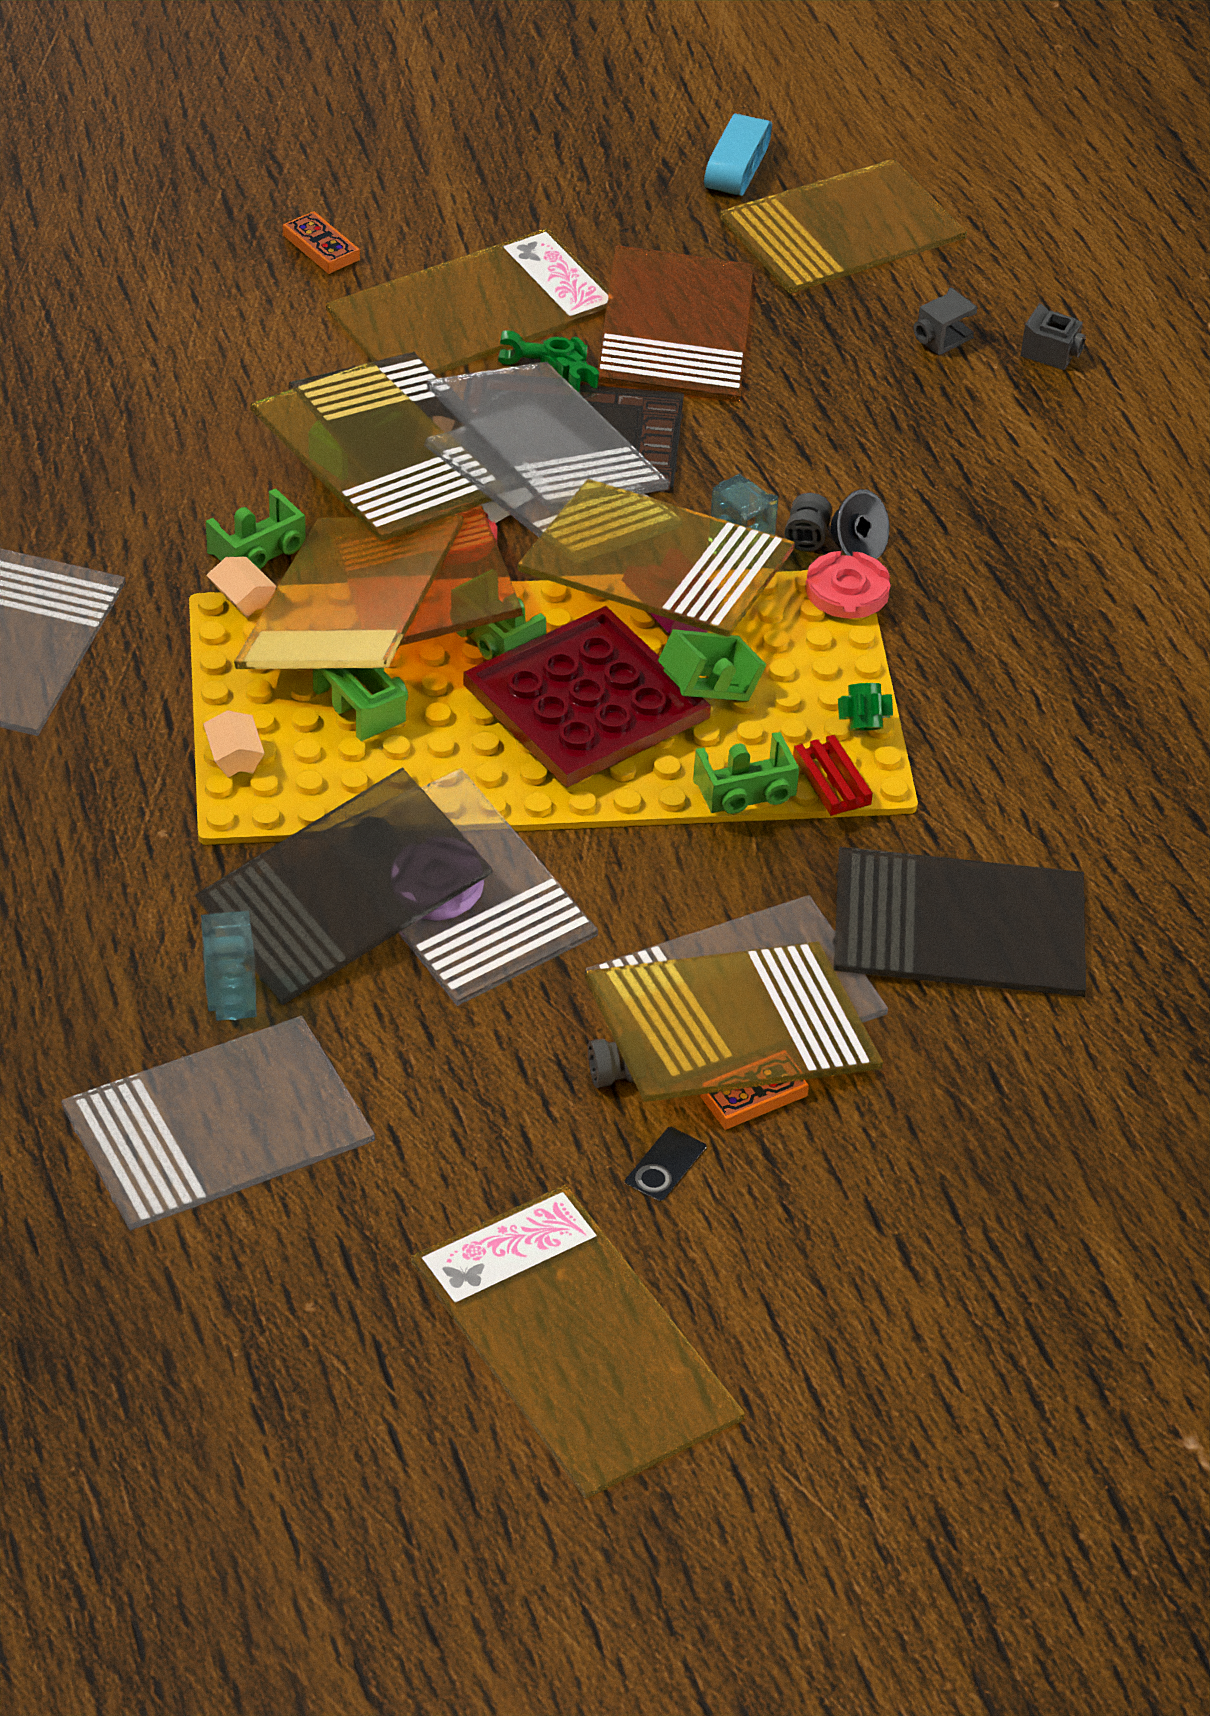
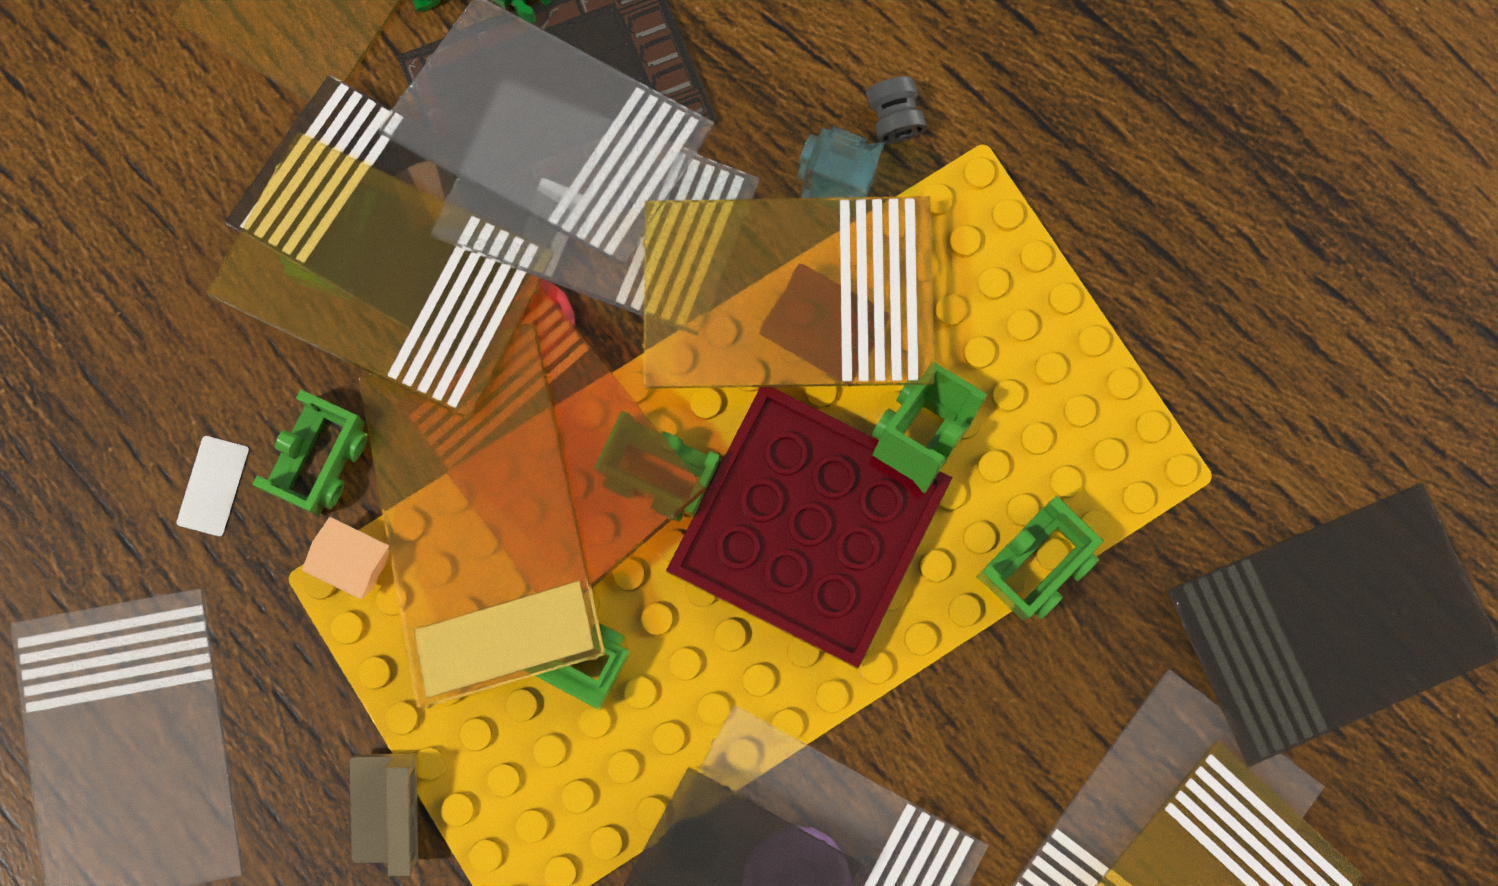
camera: 30 degrees left, 35 degrees up
(168, 728) = (384, 811): none -> dark tan panel
(172, 535) = (212, 486): none -> white sticker
(234, 742) = (475, 808): light nougat piece -> none
(840, 773) = (1129, 480): red tile -> none
(848, 584) = (989, 191): coral tile -> none
(861, 524) = (958, 95): black piece -> none
(865, 706) = (1113, 390): green gear -> none

